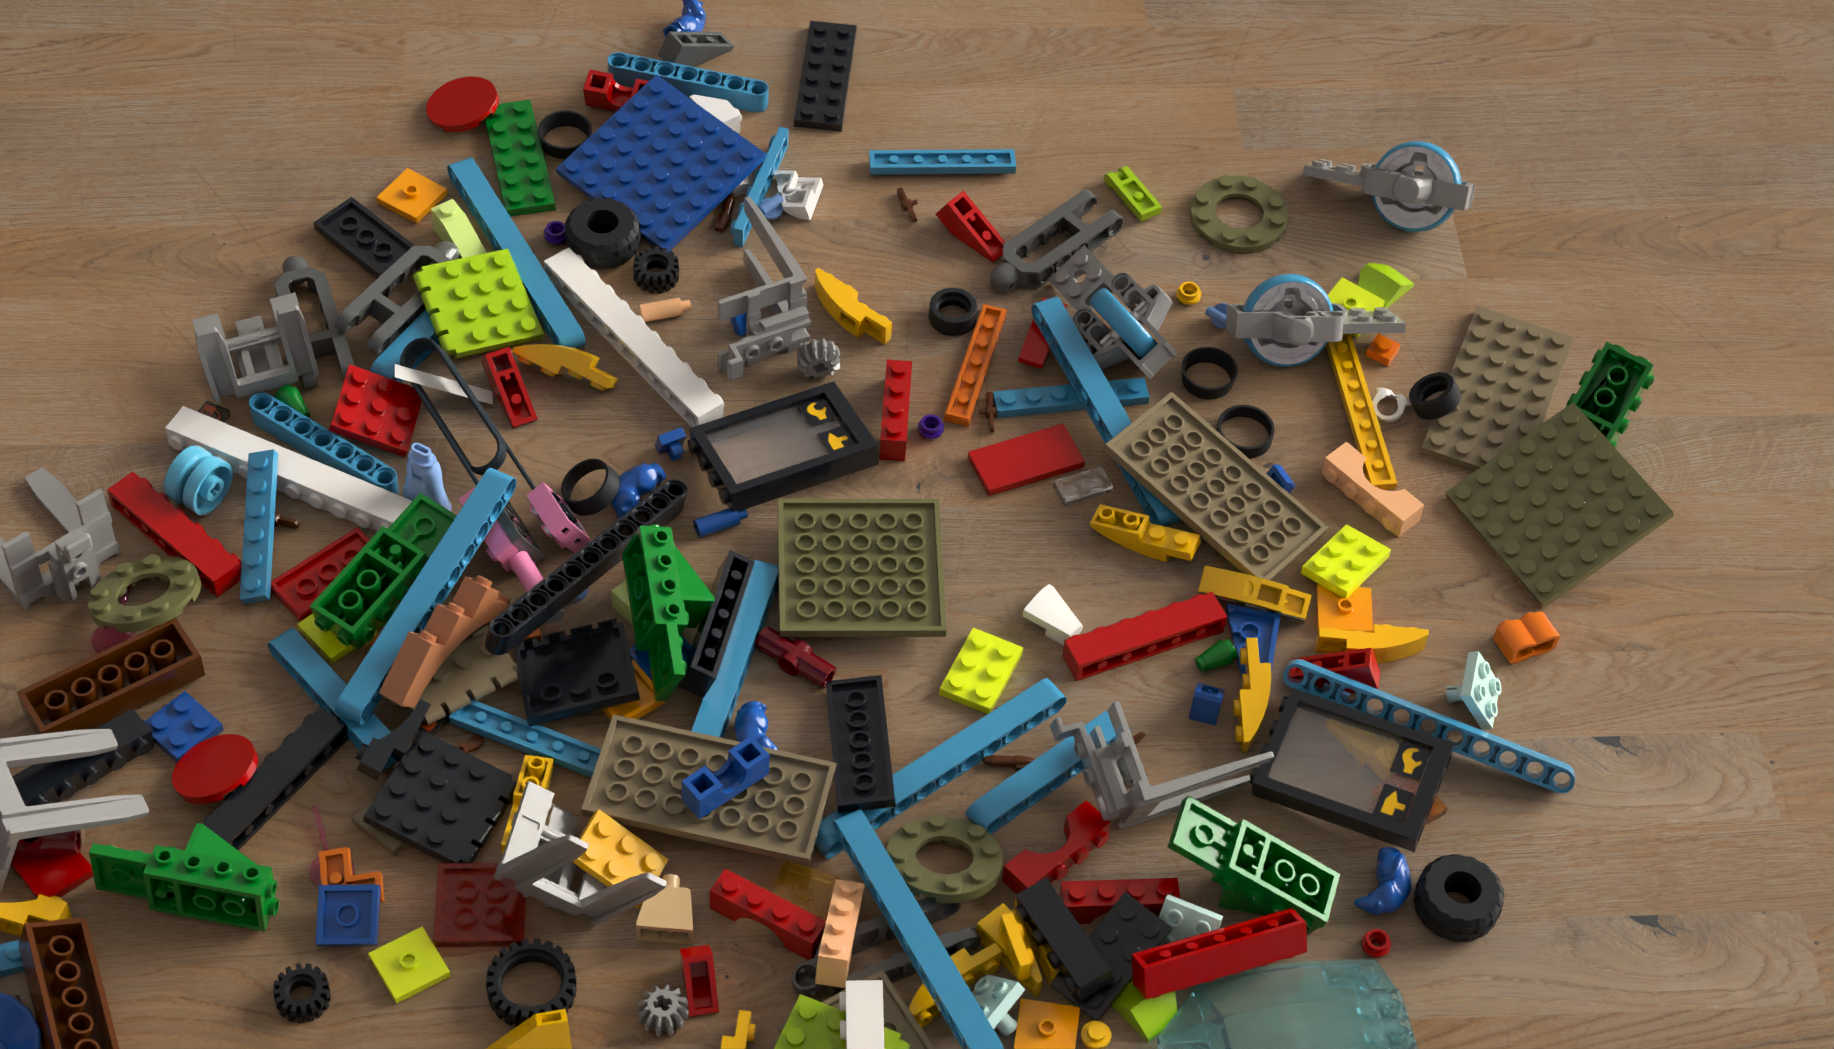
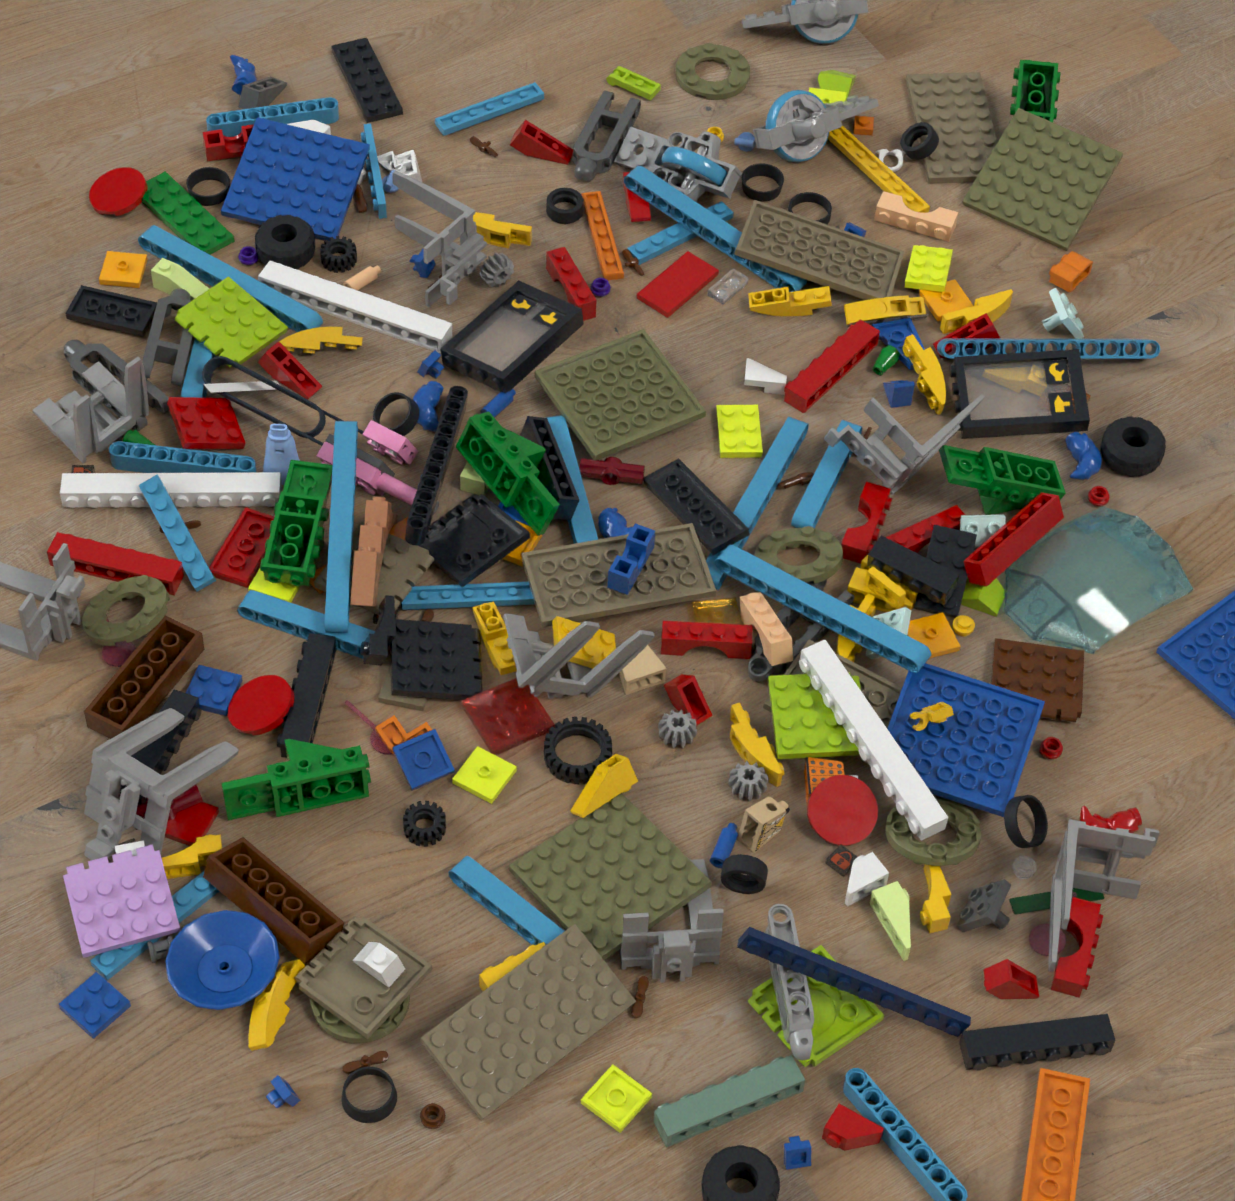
camera: 25 degrees left, 0 degrees up
(198, 480) = (111, 518): medium azure wheel -> none

